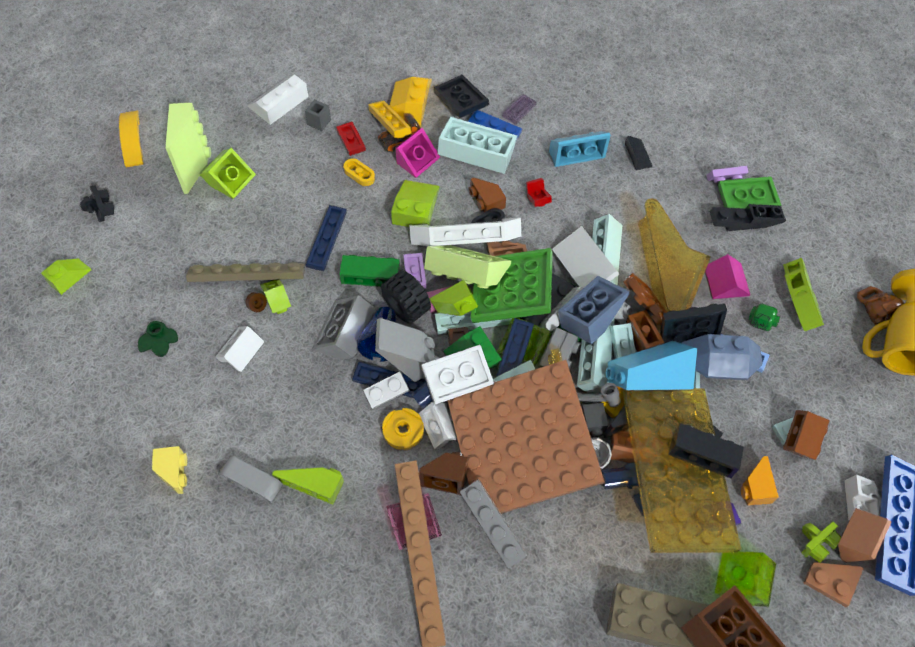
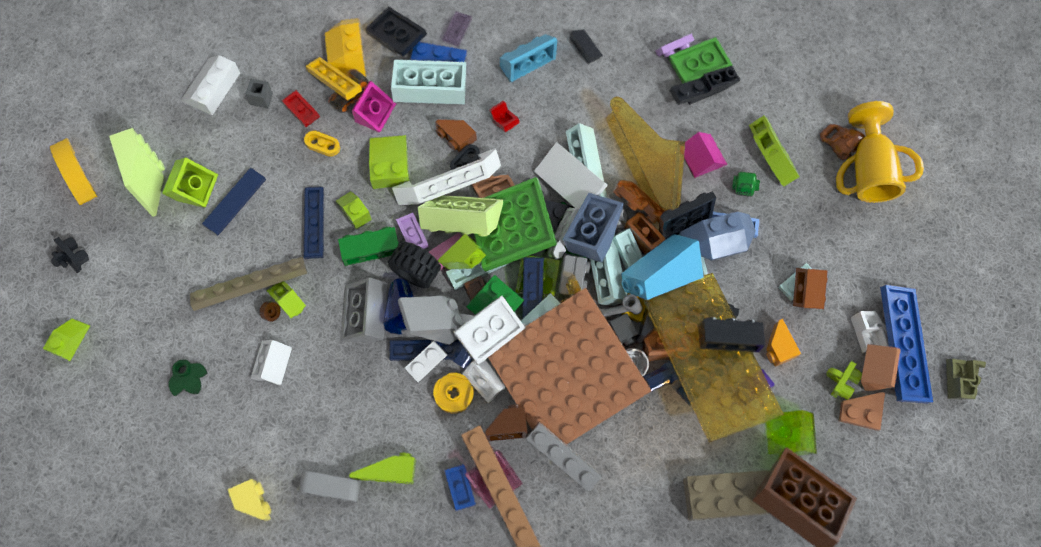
camera: 20 degrees left, 10 degrees up
(260, 200) = (234, 201): none -> dark blue tile
(368, 237) = (354, 209): none -> lime slope
(377, 522) = (460, 487): none -> blue plate

